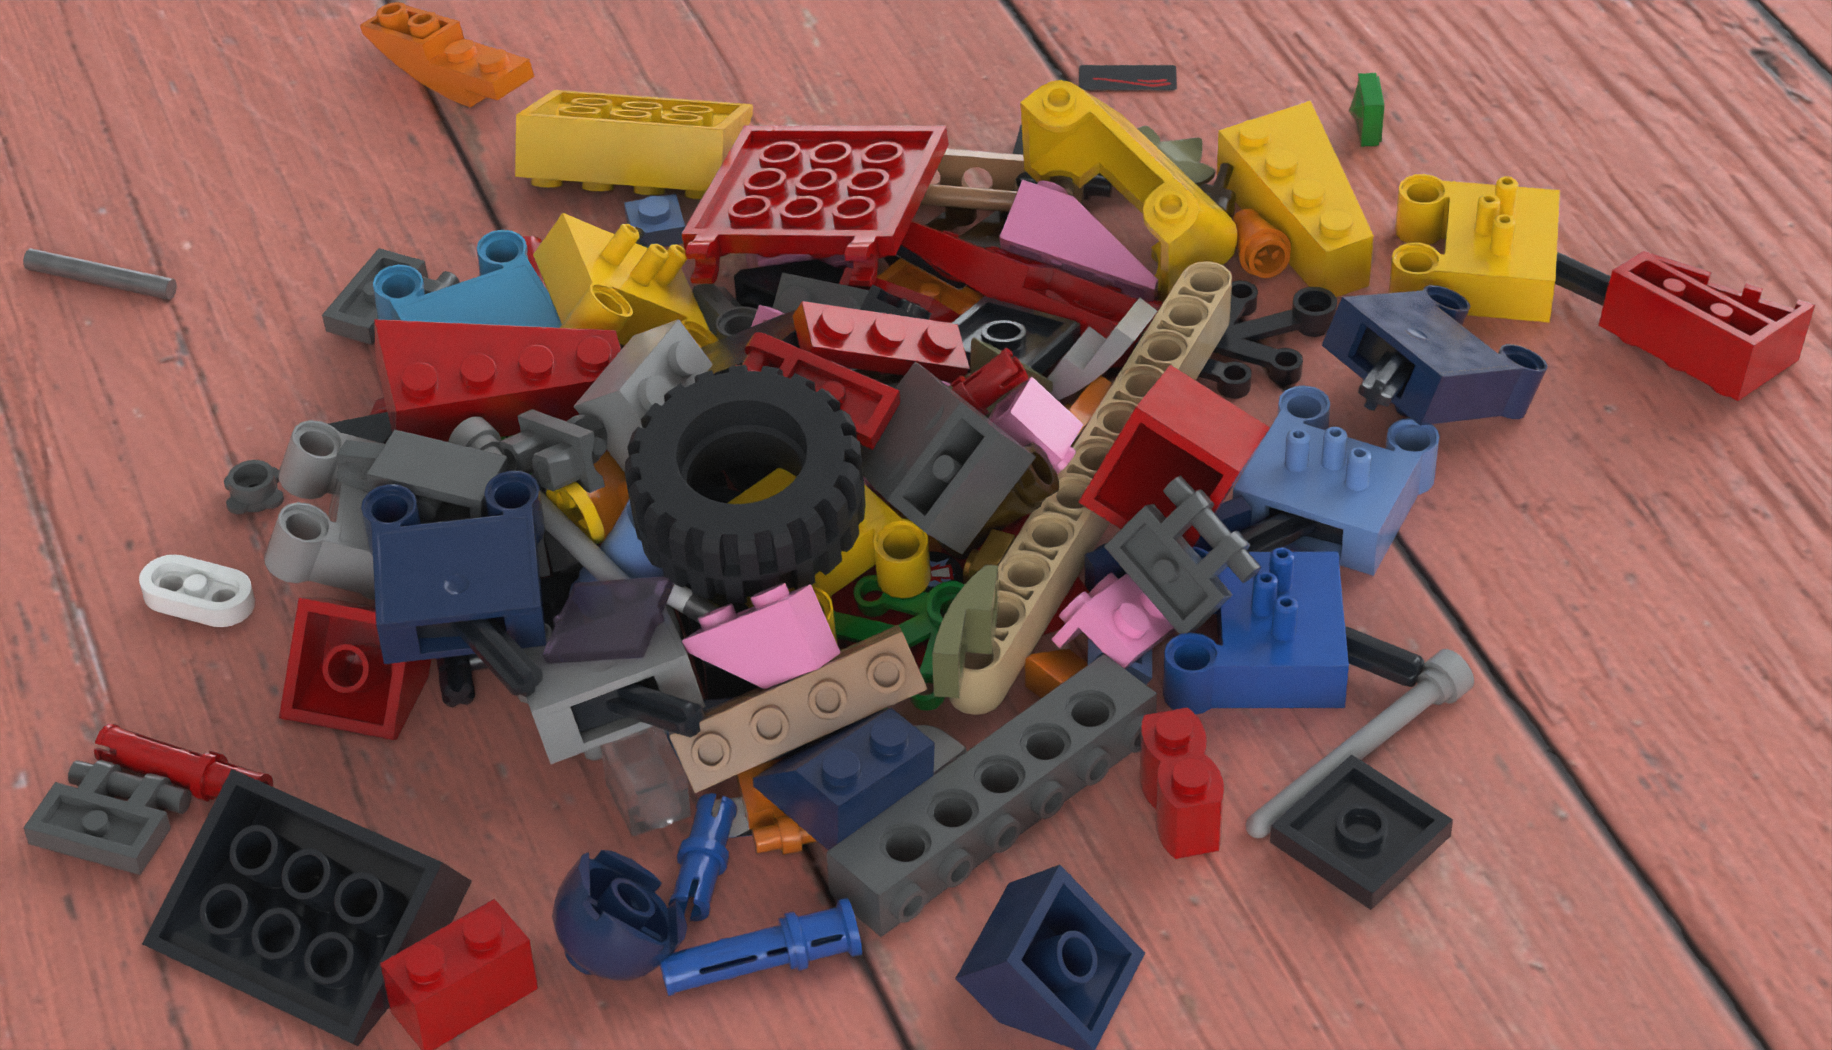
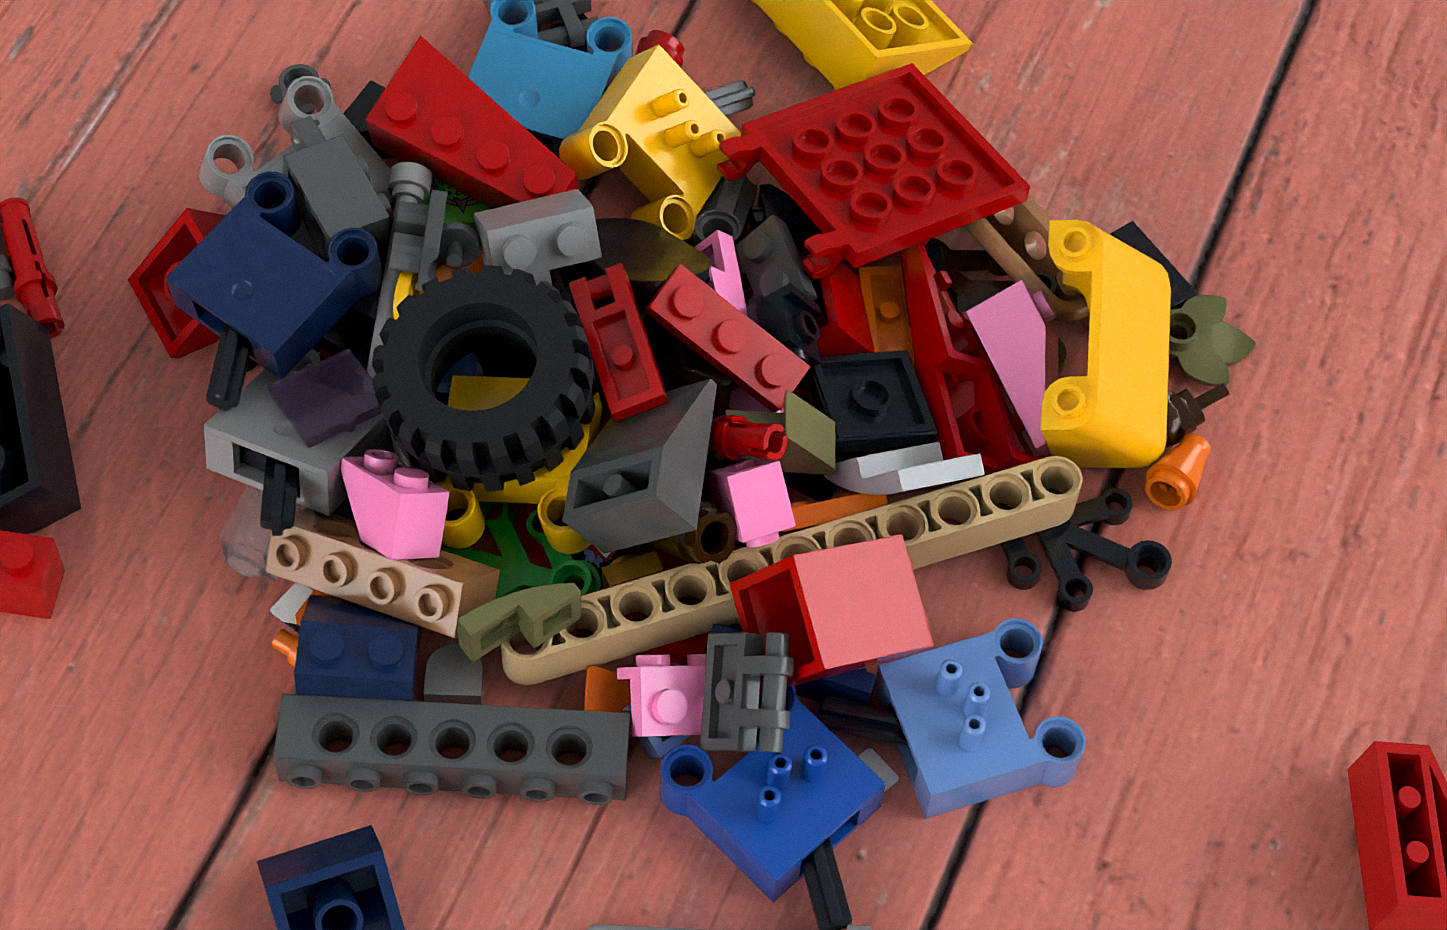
camera: 40 degrees right, 15 degrees up
(197, 590) = (181, 144): white plate -> none
(614, 918) = (117, 618): dark blue cylinder -> none
(658, 218) = (787, 86): medium blue plate -> none
(703, 855) = (233, 620): blue pin -> none
(791, 942) = (208, 734): blue pin -> none
(1127, 77) = (1276, 242): black sticker -> none
(1181, 783) = (563, 864): red brick -> none
(1298, 186) = (1259, 448): yellow wedge -> none
(1368, 109) = (1408, 428): green tile -> none
(1426, 362) = (1144, 687): dark blue piece -> none
(1495, 250) = (1343, 638): yellow piece -> none

